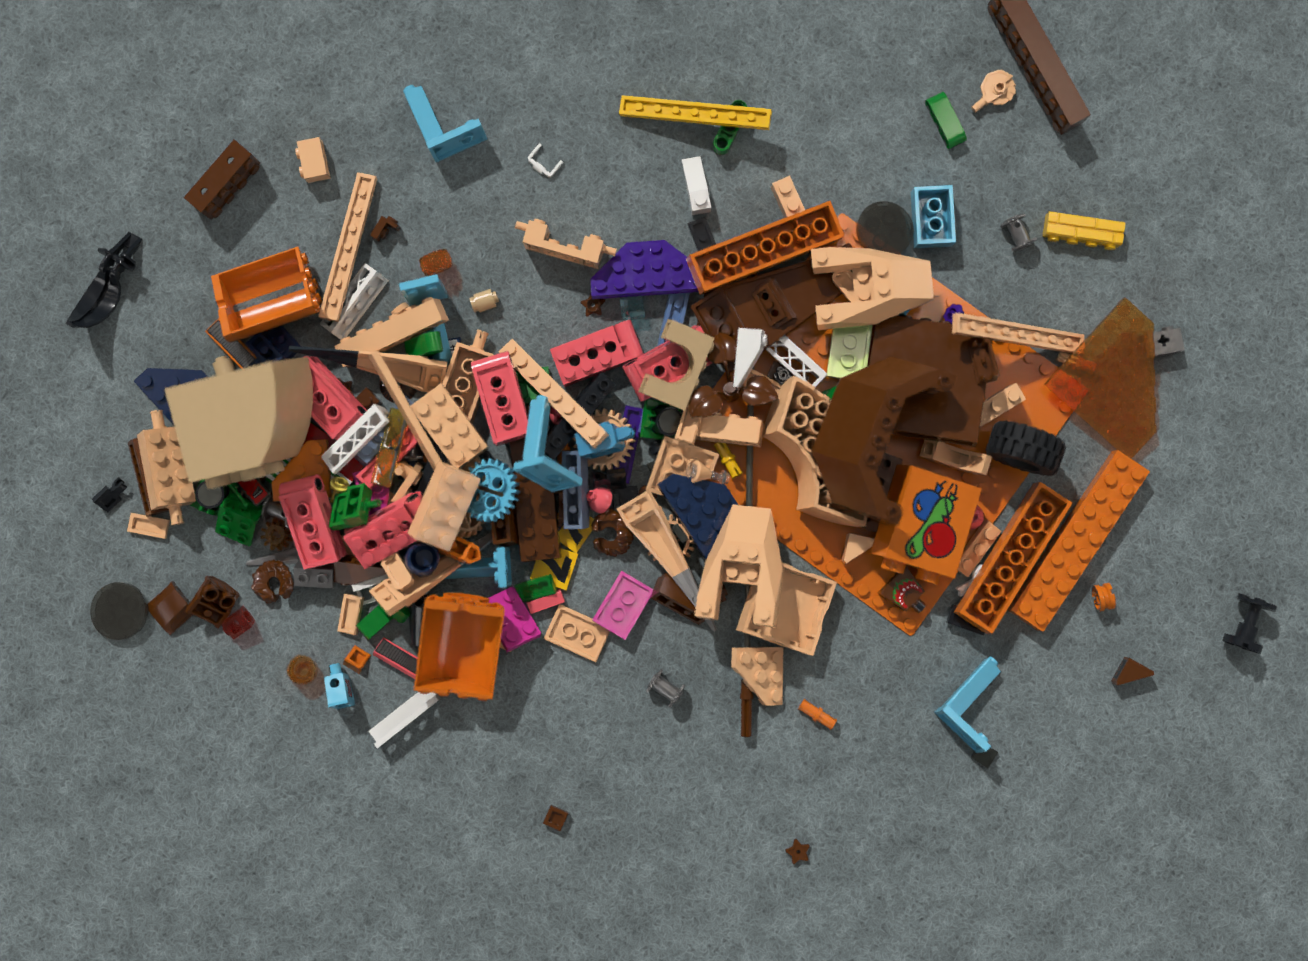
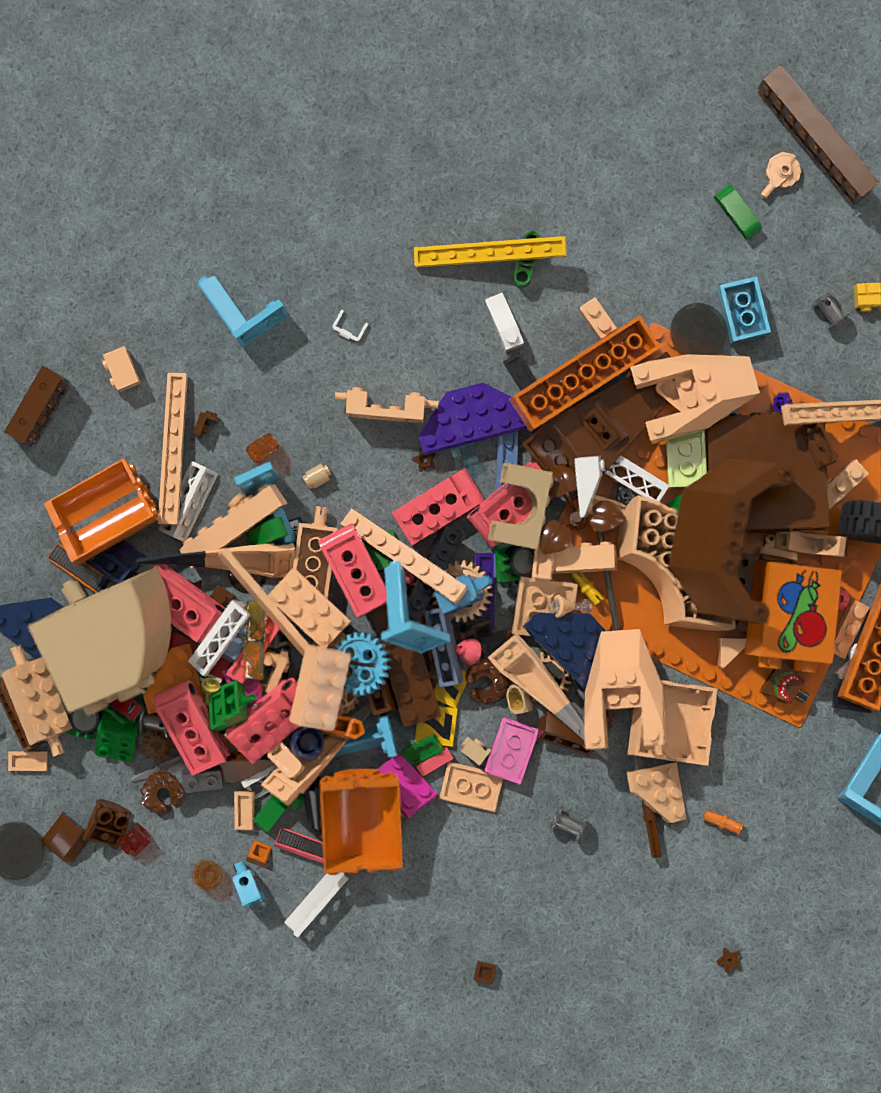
camera: 10 degrees left, 0 degrees up
(587, 597) = (475, 750): none -> tan brick
(639, 556) = (518, 700): none -> rock
(912, 458) = (768, 552): none -> light nougat piece

